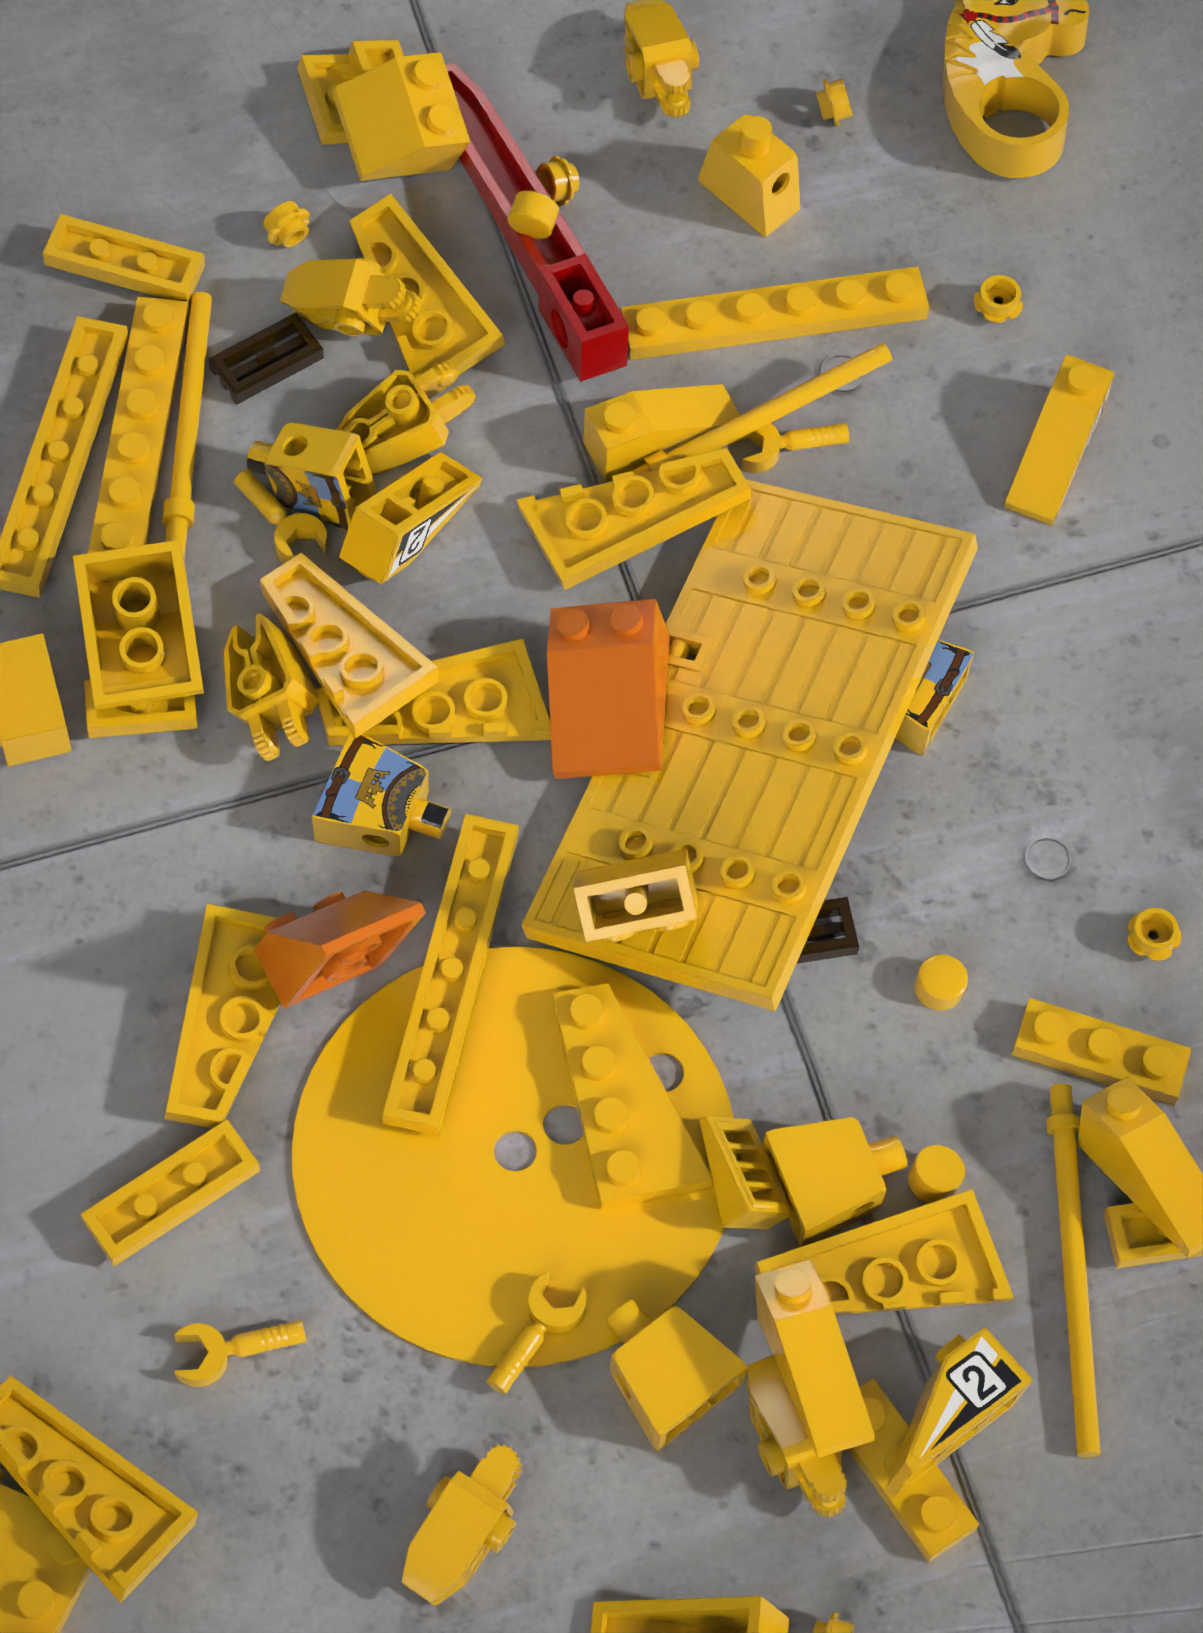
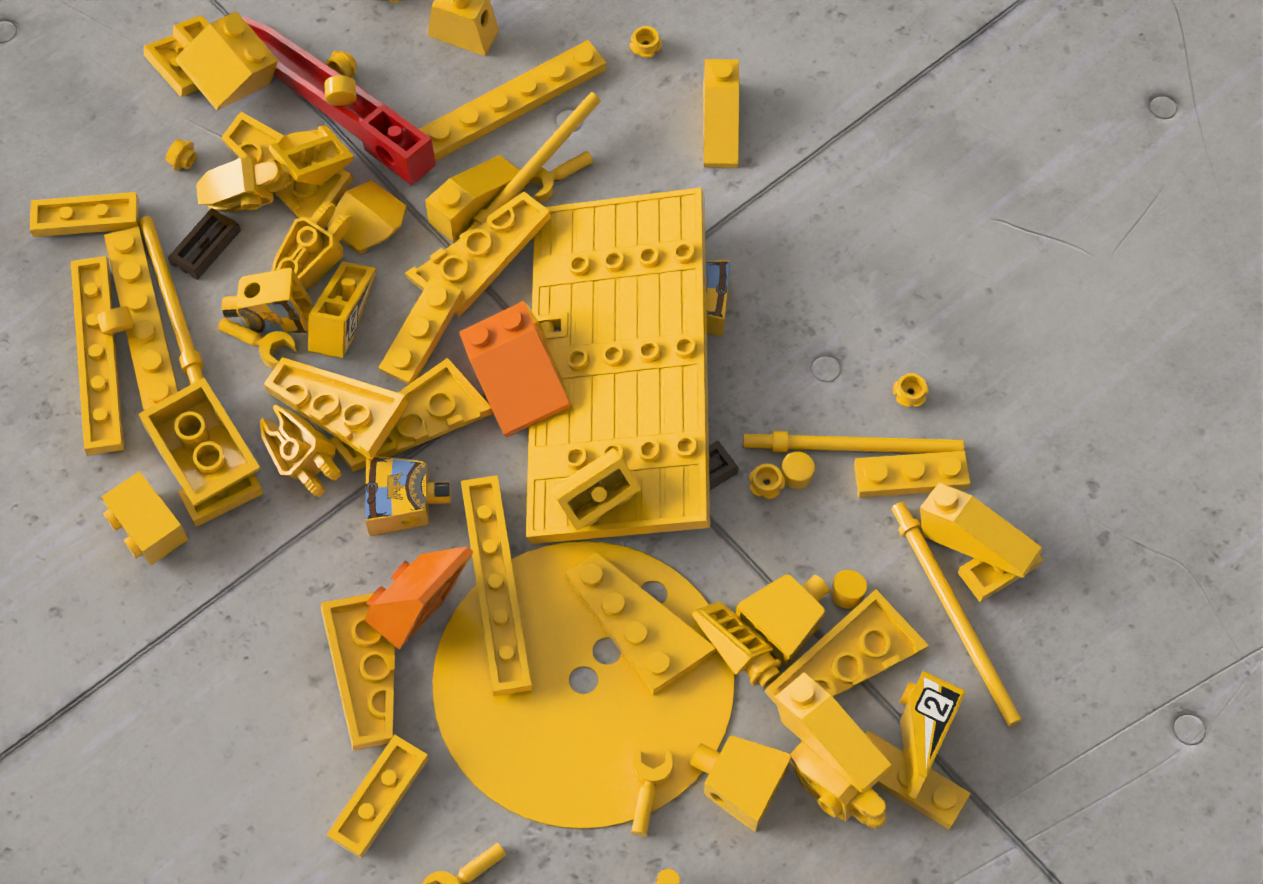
camera: 20 degrees left, 0 degrees up
(99, 418) = (115, 320): none -> yellow piece
(457, 289) = (311, 155): none -> yellow slope
(504, 588) = (421, 331): none -> yellow plate
(509, 402) = (374, 215): none -> yellow slope
(765, 1236) = (763, 670): none -> yellow plate
(892, 967) = (770, 473): none -> yellow plate
(936, 934) = (780, 443): none -> yellow bar

